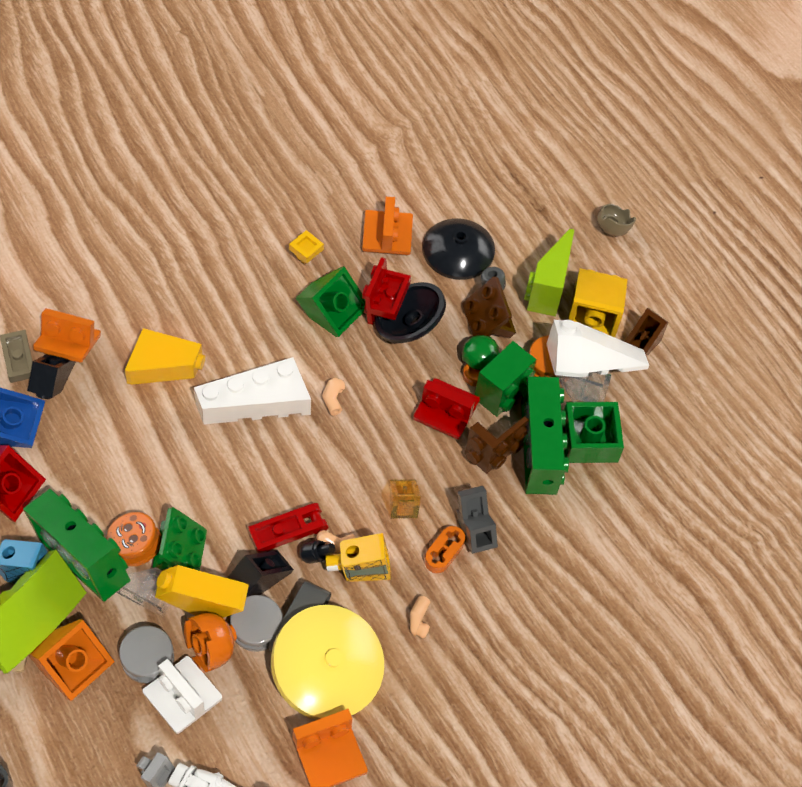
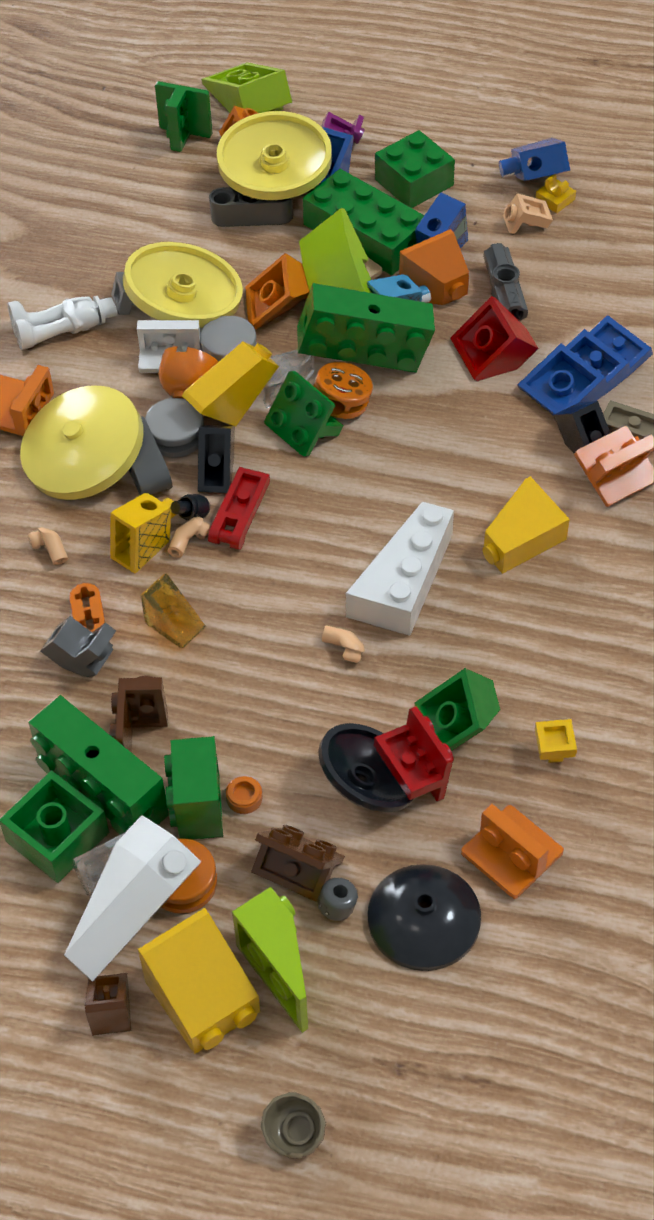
camera: 140 degrees right, 5 degrees down
(118, 728) = (181, 283): none -> light yellow dish
(446, 408) = (236, 724): red bracket -> none
(479, 351) = (257, 808): green hair -> none

